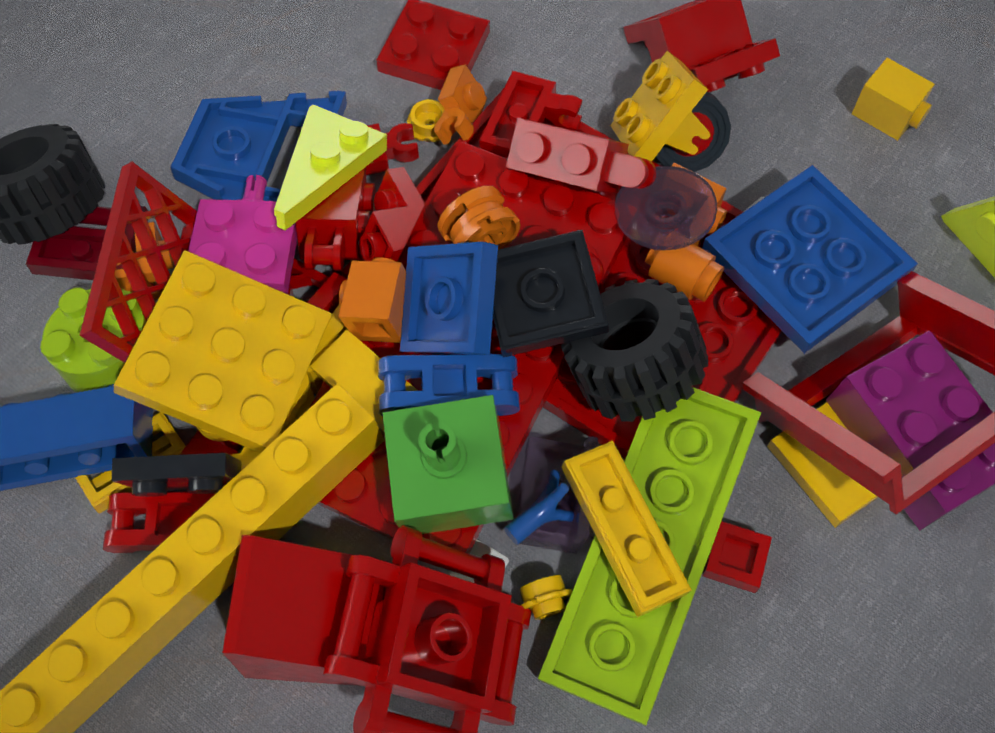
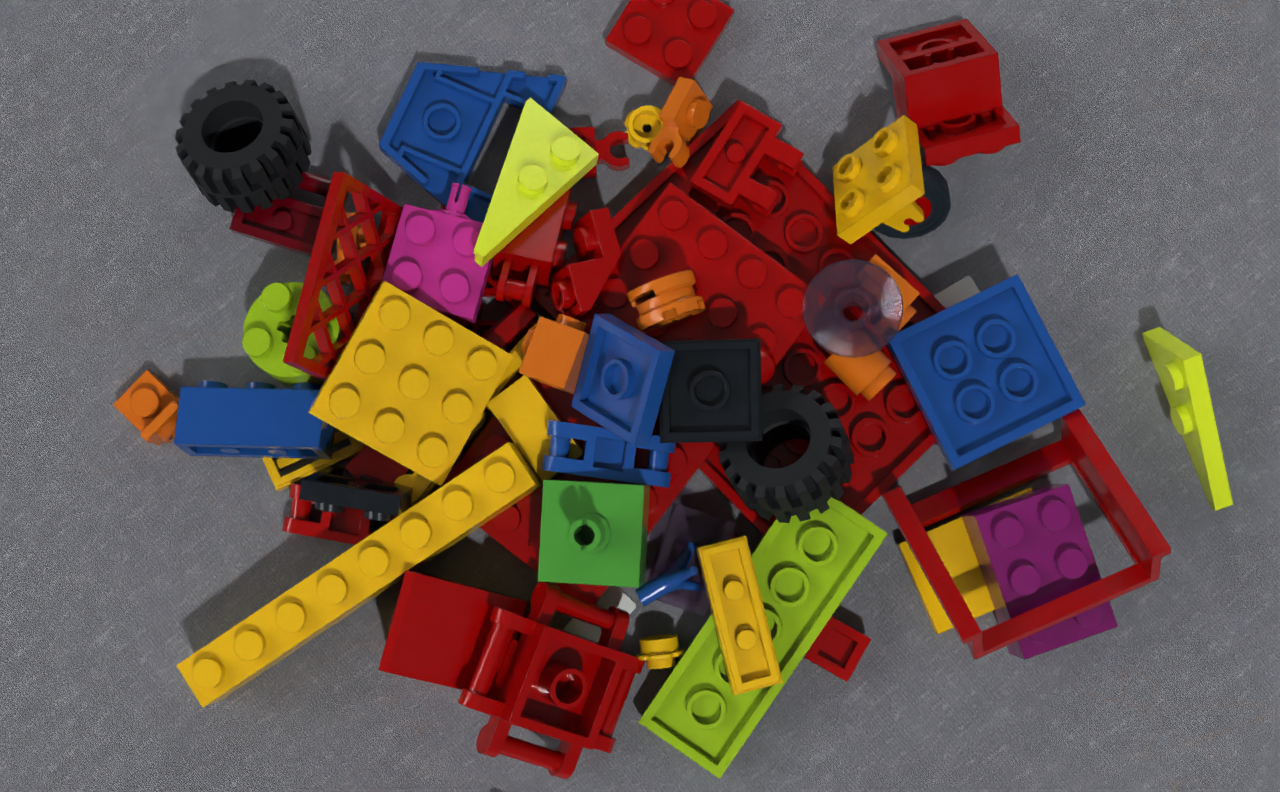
camera: 10 degrees right, 20 degrees up
(577, 158) = (778, 238): brick -> none
(894, 99) = (1136, 195): yellow brick -> none

